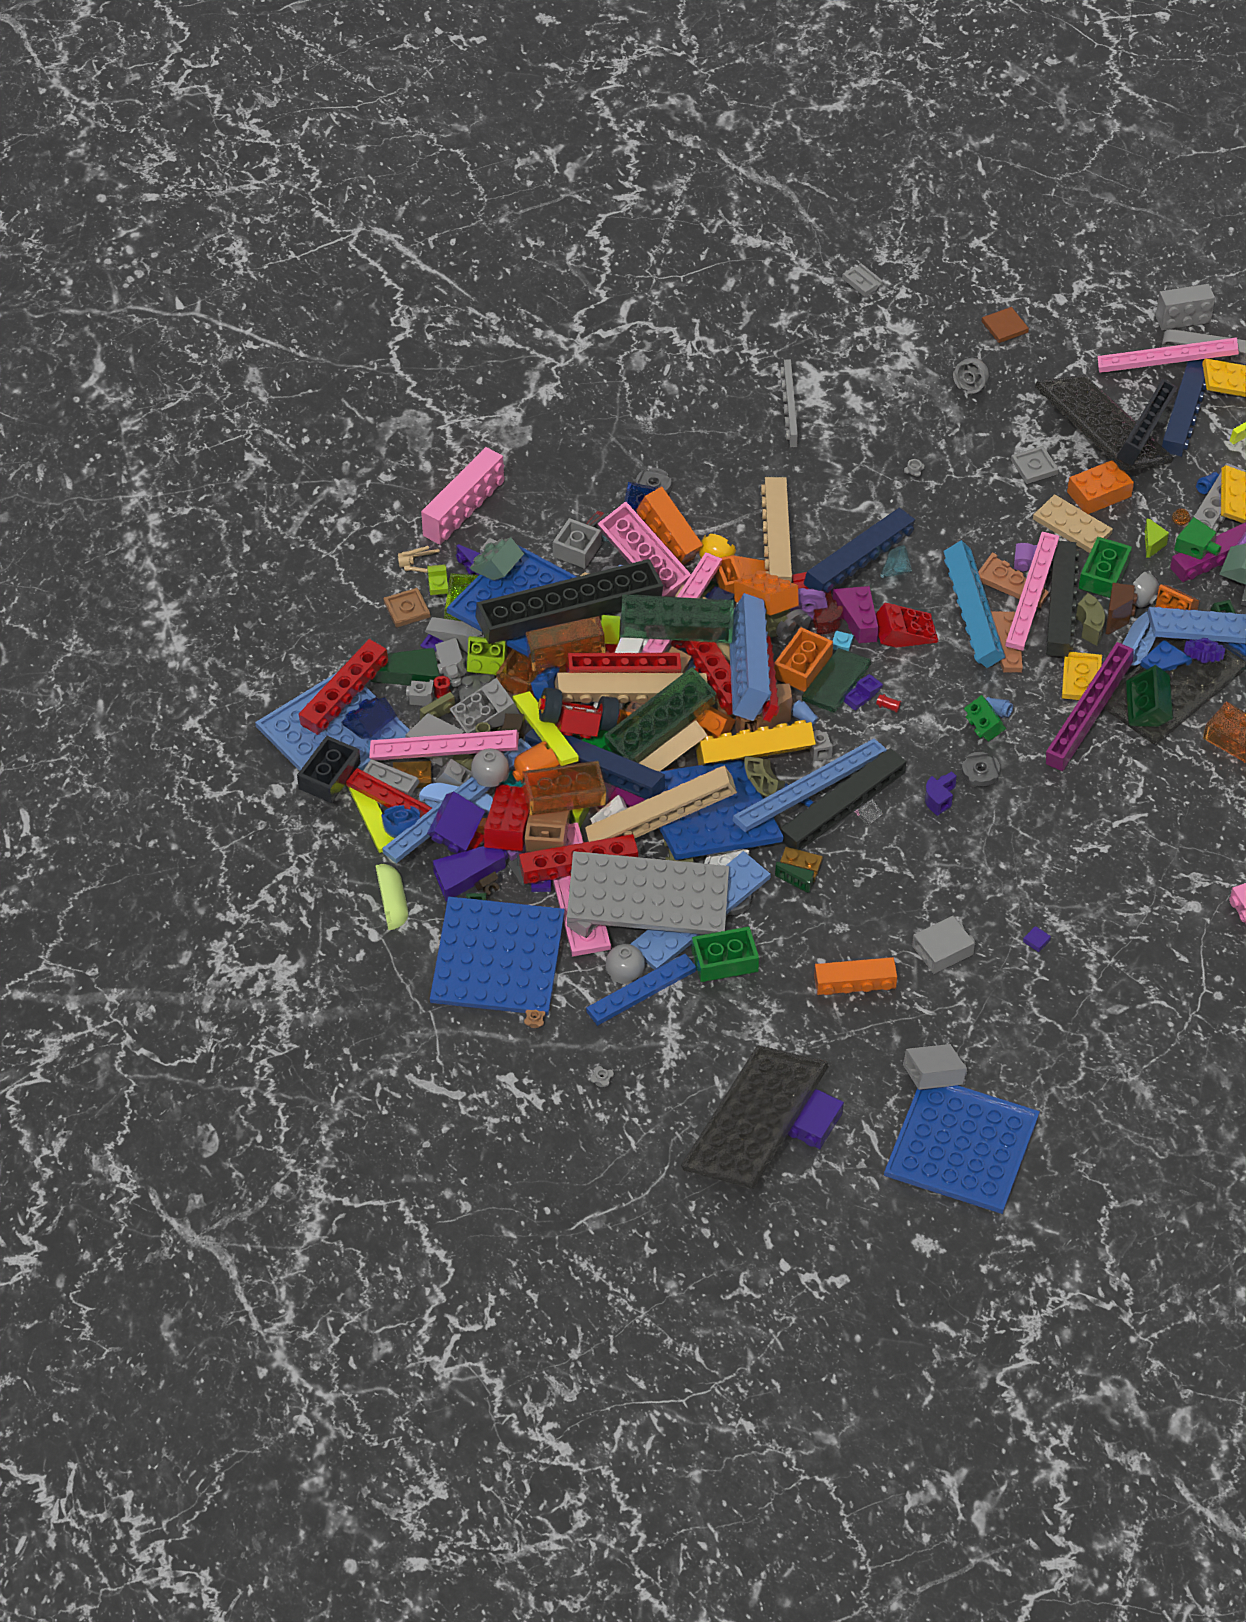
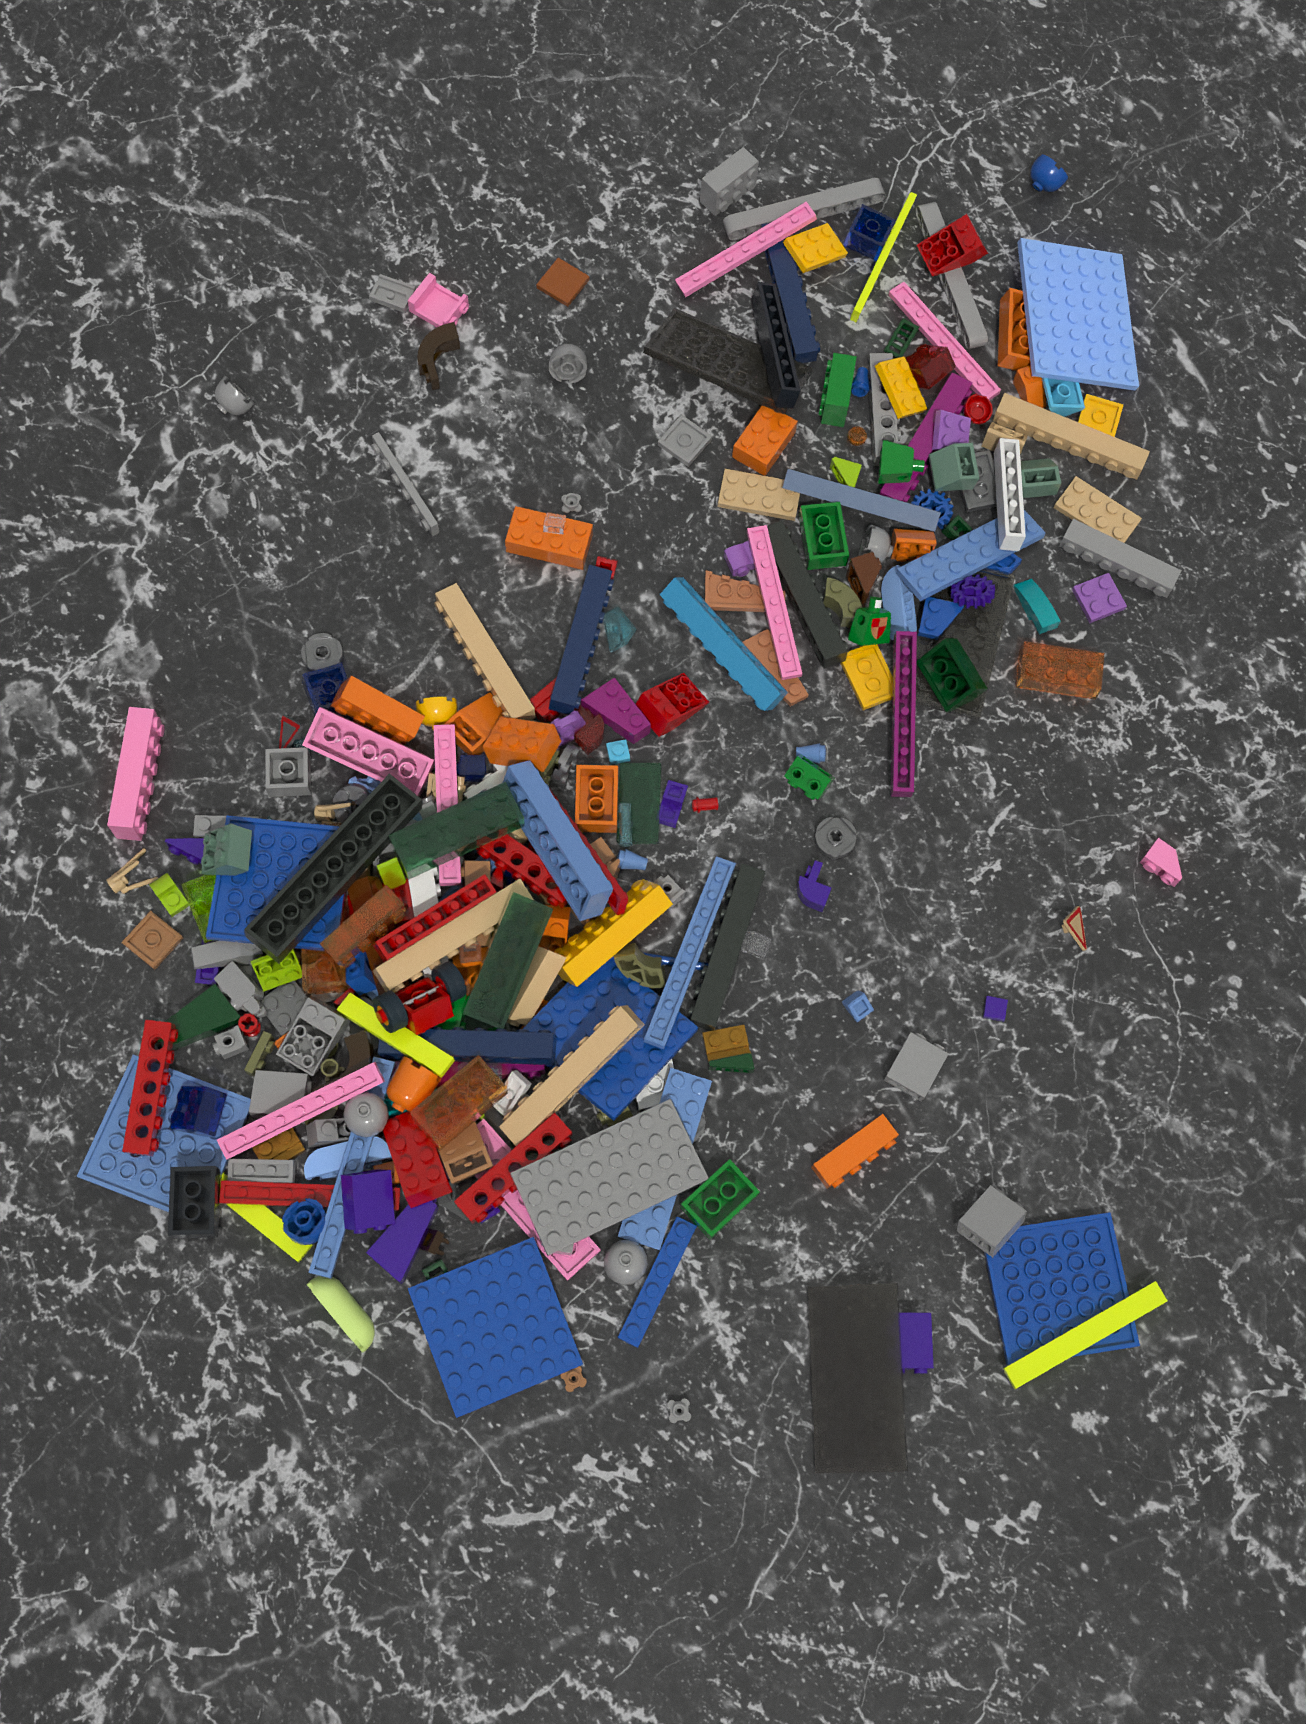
camera: 35 degrees left, 20 degrees up
(692, 296) = (232, 398): none -> light grey cylinder
(814, 685) = (625, 825): none -> clear light blue pin
(871, 325) = (432, 347): none -> dark brown arch
(879, 480) = (527, 539): none -> orange brick
(887, 467) = (554, 523): none -> clear slope
(893, 299) = (437, 303): none -> bright pink panel
(919, 519) = (607, 563): none -> red slope
(924, 887) = (858, 1005): none -> medium blue slope
(961, 1178) = (1084, 1335): none -> neon yellow tile
(1102, 635) = (871, 624): none -> green torso
(1142, 912) = (1074, 924): none -> tan piece
(1153, 555) = (861, 500): none -> sand blue tile
(1182, 476) = (837, 389): none -> green brick
(1210, 588) = (937, 503): none -> blue gear

